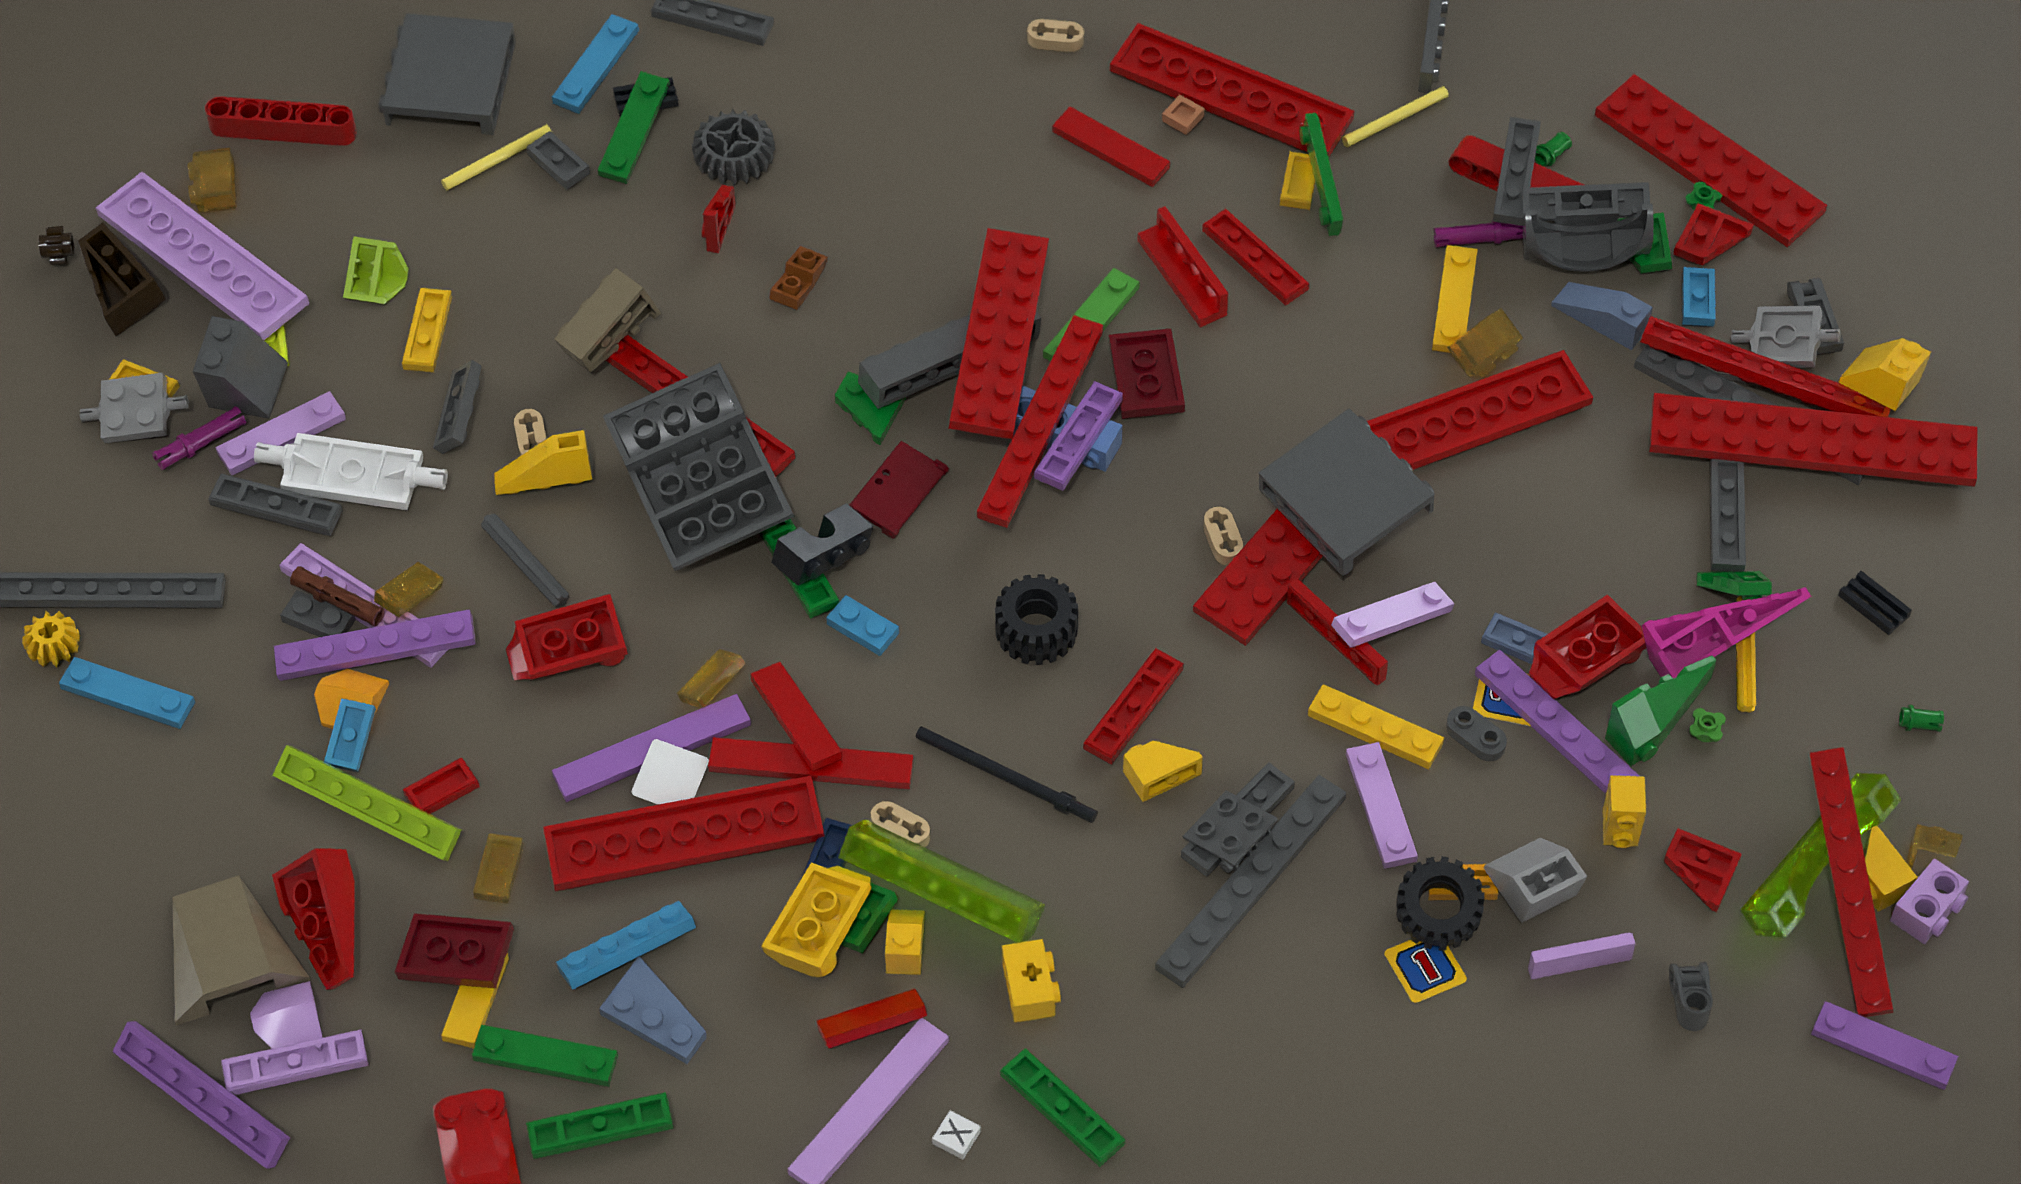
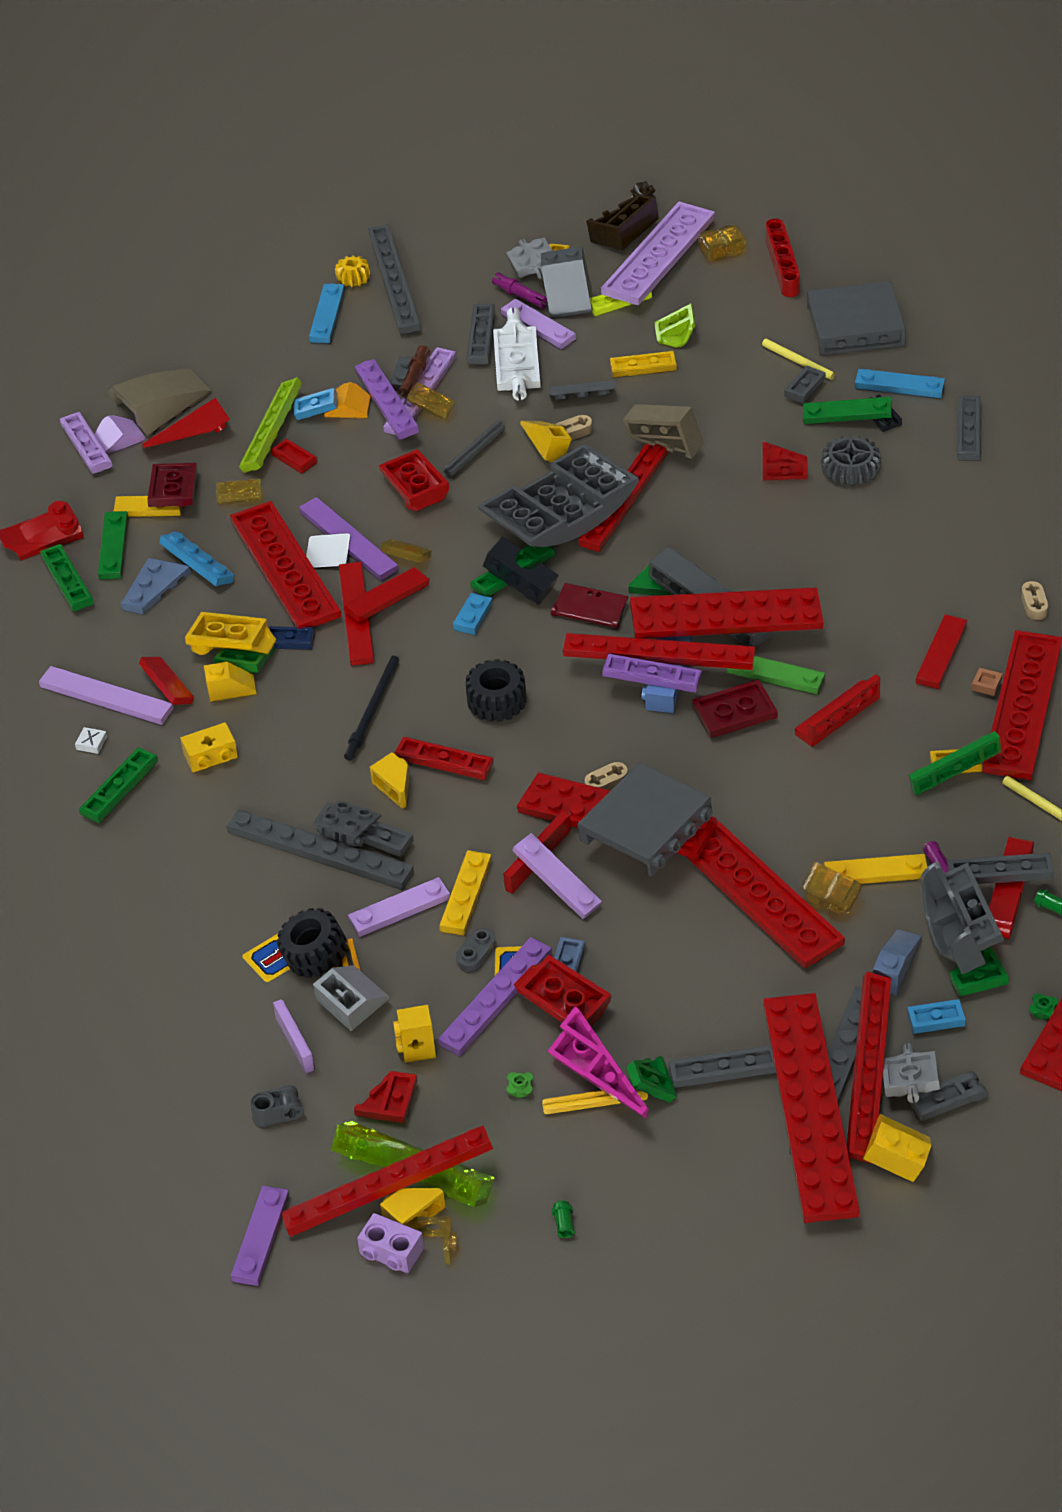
camera: 80 degrees right, 10 degrees down
(201, 1094) = (52, 415): medium lavender plate -> none
(799, 278) = (758, 521): dark orange slope -> none
(902, 822) = (322, 666): tan beam -> none
(941, 881) = (272, 687): clear neon green brick -> none
(1255, 257) = (870, 750): red tile -> none
(1649, 714) = (511, 1044): green wedge -> none
(1710, 235) = (1003, 1014): red wing -> none
(1878, 600) = (661, 1172): black tile -> none

